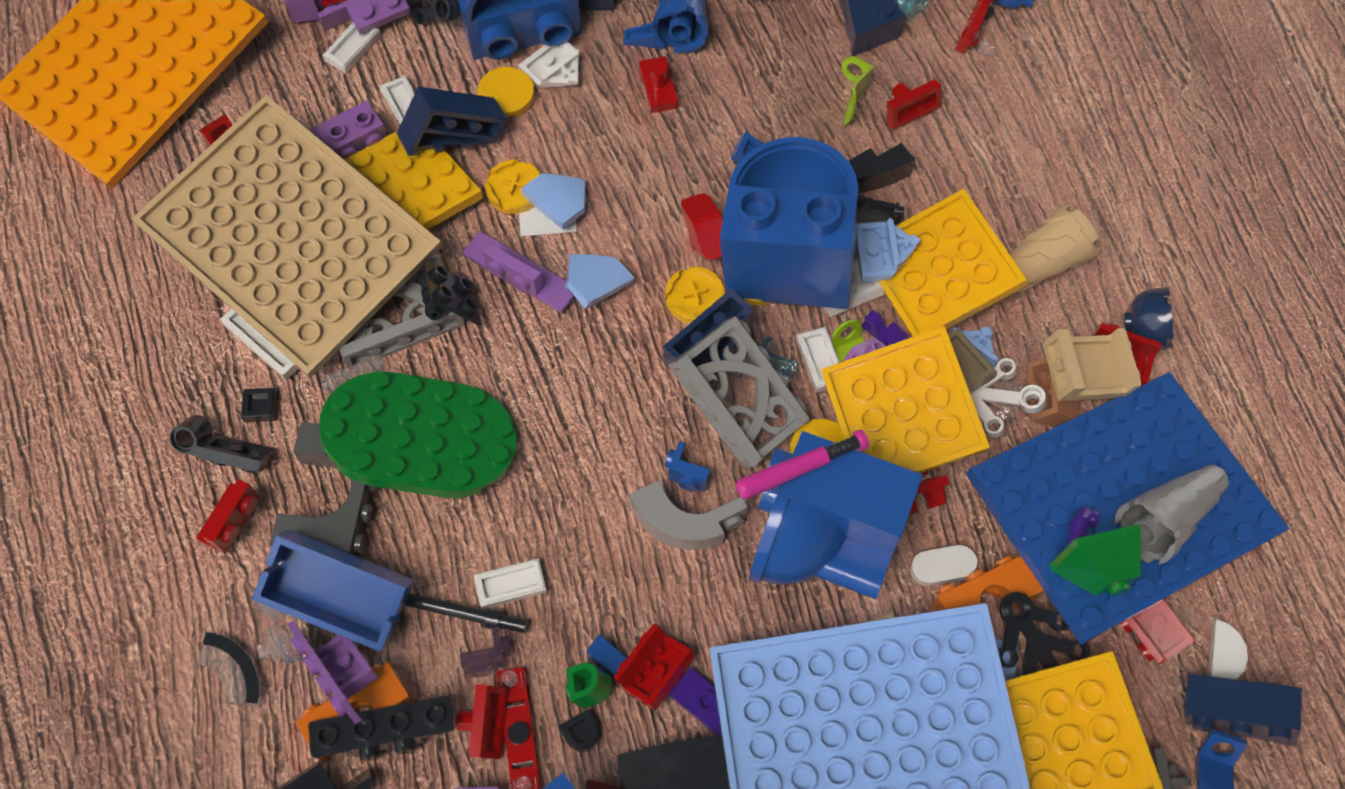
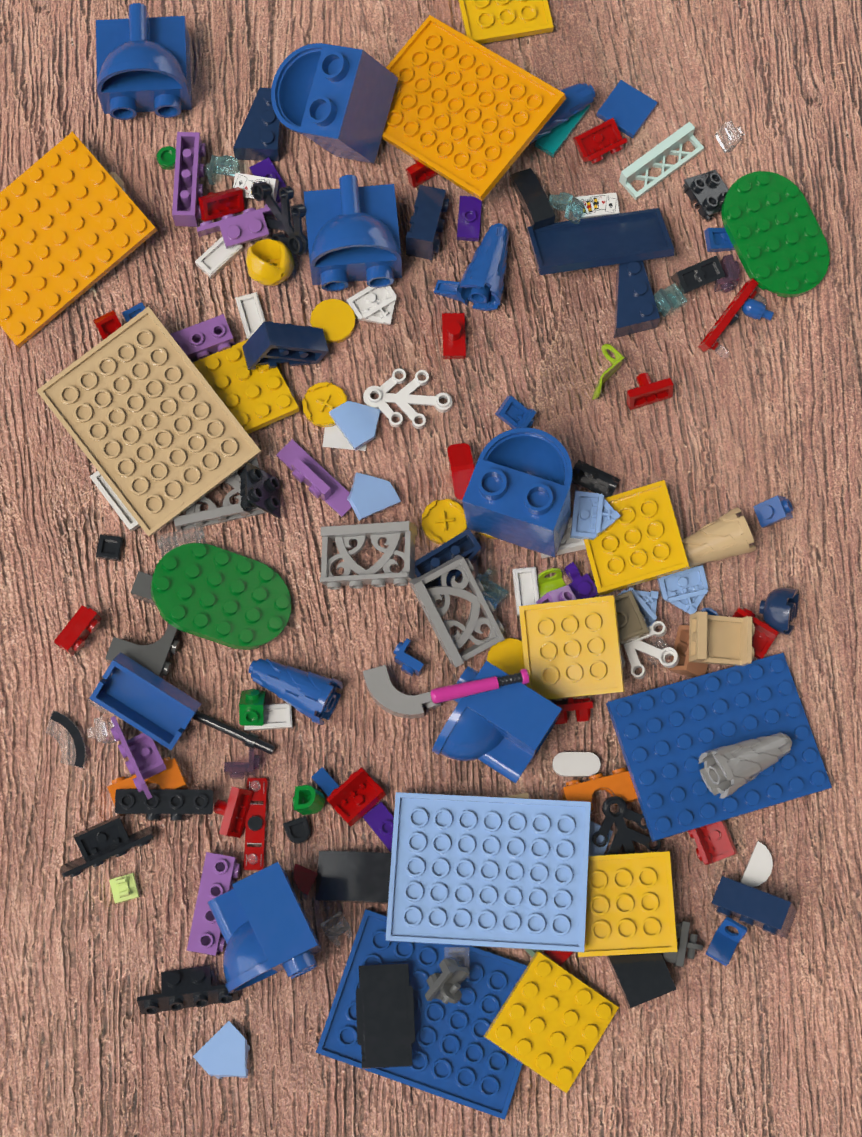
camera: 10 degrees right, 10 degrees up
(218, 449) = (61, 568): black plate -> none
(415, 36) = (269, 262): none -> yellow piece
(486, 574) = (252, 707): none -> green bracket
(556, 536) = (305, 691): none -> blue cone
(607, 315) = (375, 531): none -> light grey fence
(613, 161) = (403, 398): none -> white plant
(882, 170) = (600, 446): black slope -> none
(1020, 319) = (684, 588): none -> light blue slope
(1080, 522) = (671, 760): dark purple arm -> none
(1102, 561) = (677, 790): green slope -> none
(1104, 208) = (773, 511): none -> blue bracket

